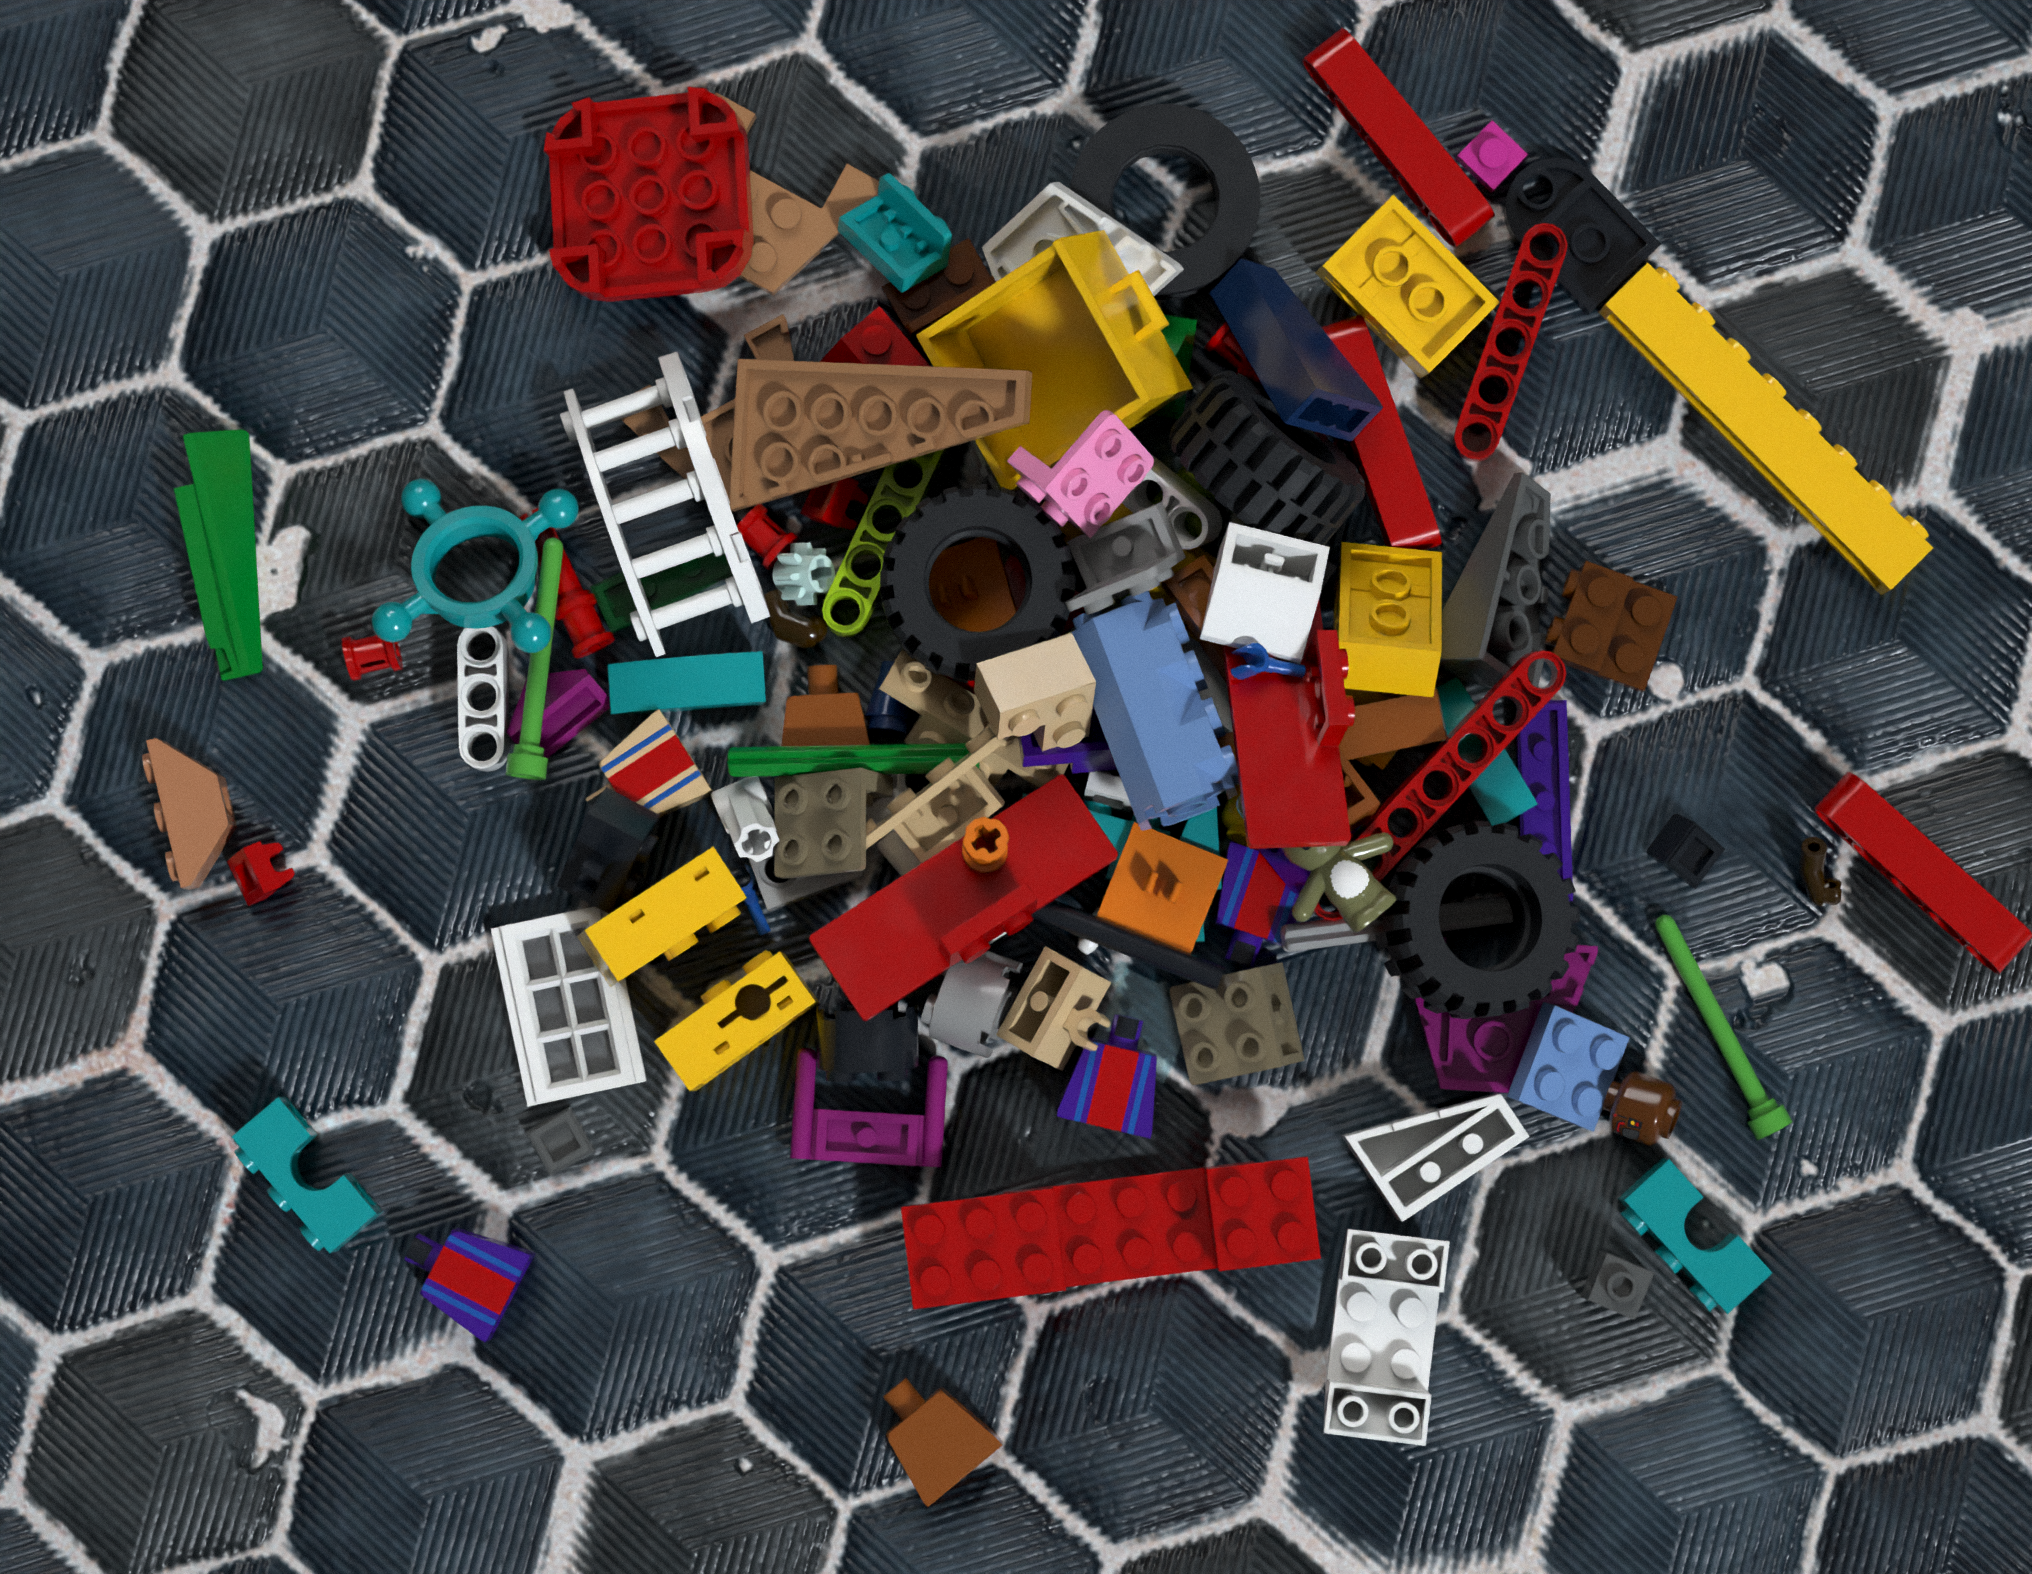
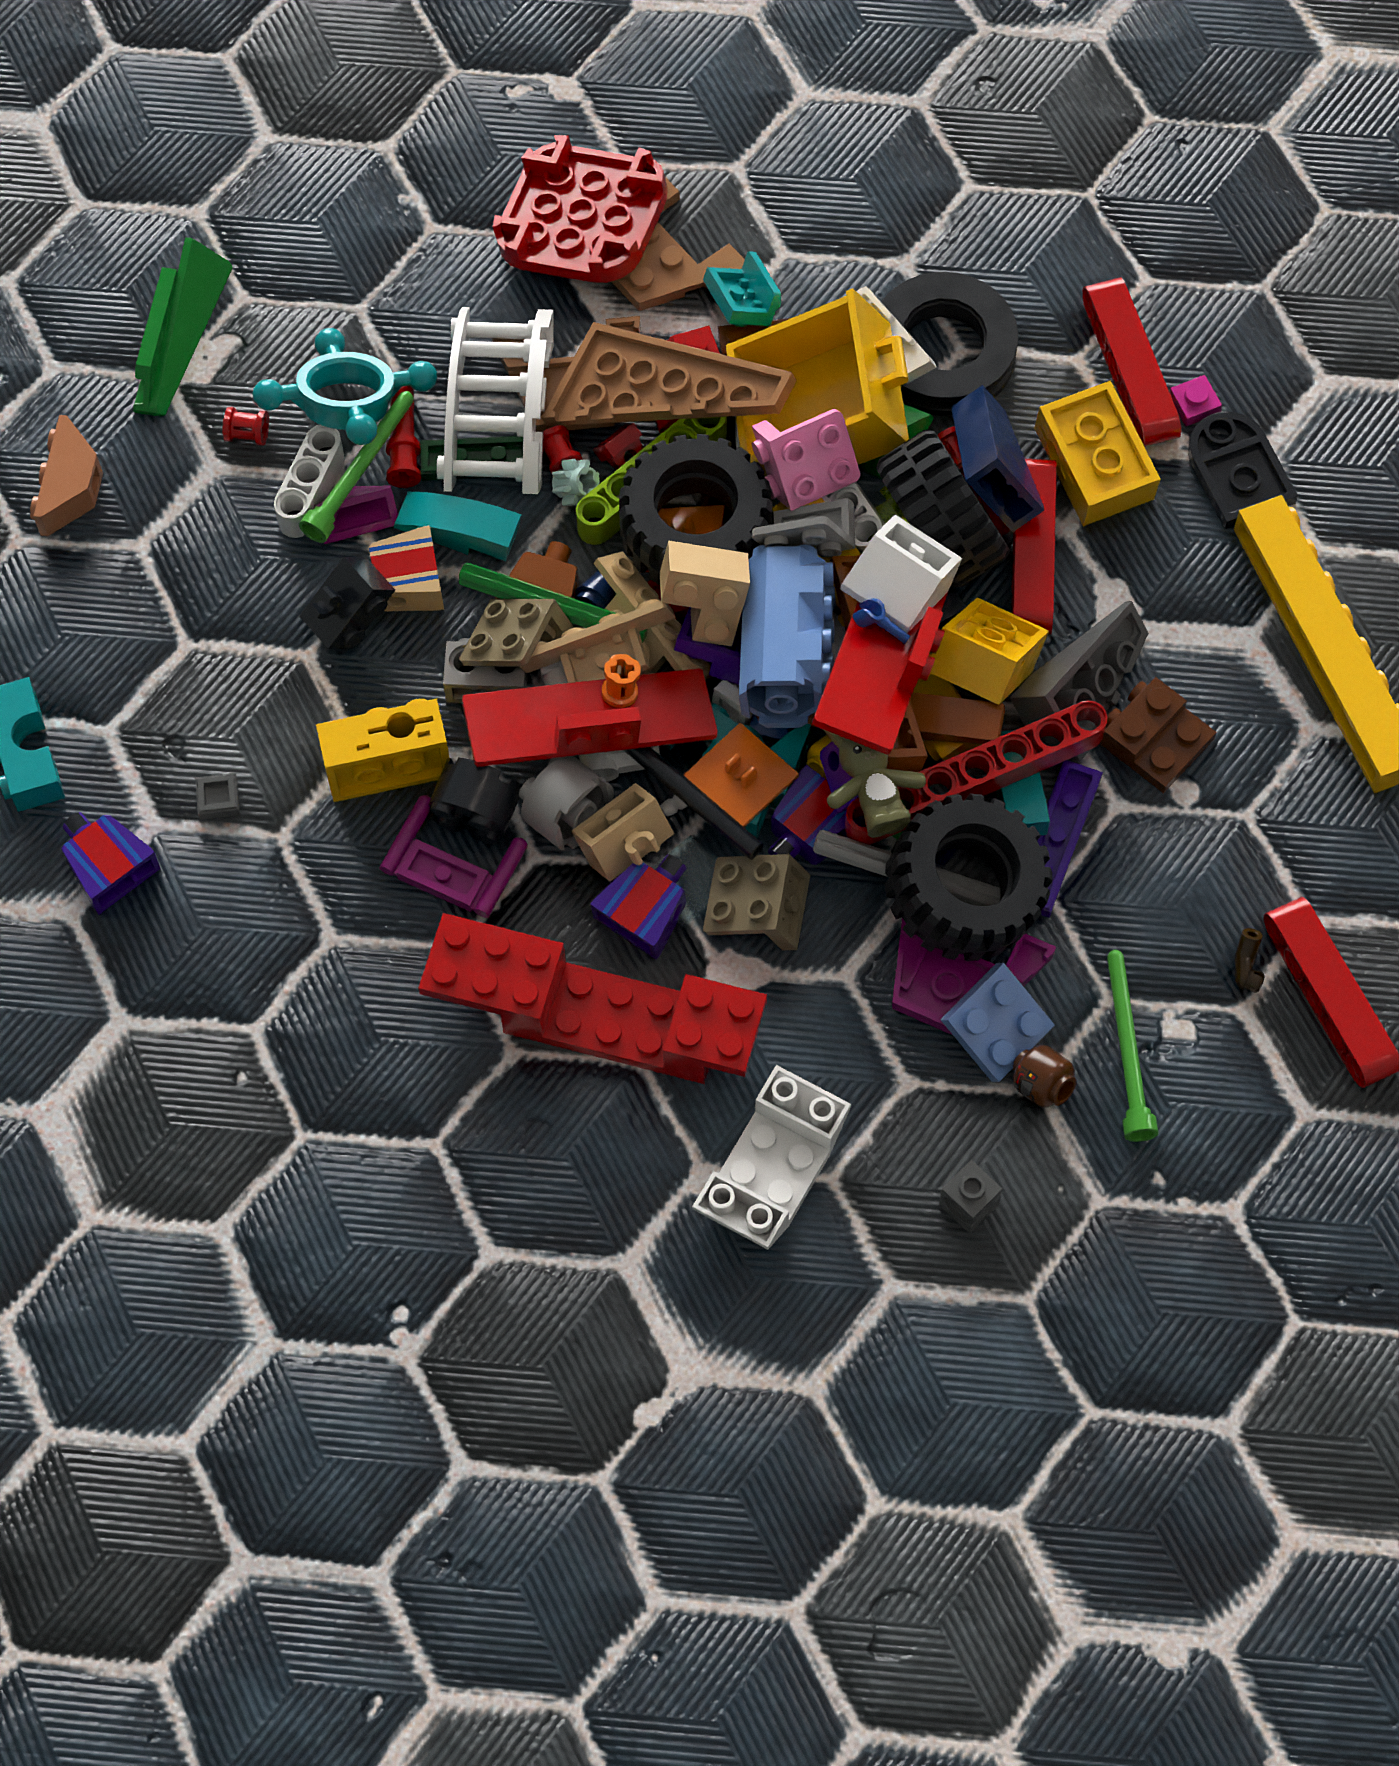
camera: 25 degrees right, 20 degrees down
(255, 872) = (91, 532): red tile -> none
(564, 1017) = (269, 706): white piece -> none
(664, 917) = (363, 656): yellow piece -> none
(747, 817) = (458, 618): white piece -> none
(753, 904) = (434, 679): blue hand -> none
(791, 626) = (551, 517): dark brown arm -> none
(937, 1439) = (394, 1107): dark orange torso -> none
(1434, 1151) = (869, 1041): white wedge -> none
(1521, 320) = (1152, 531): red beam -> none
(1659, 1206) = (1056, 1221): teal arch -> none
(1685, 850) = (1153, 912): black slope -> none

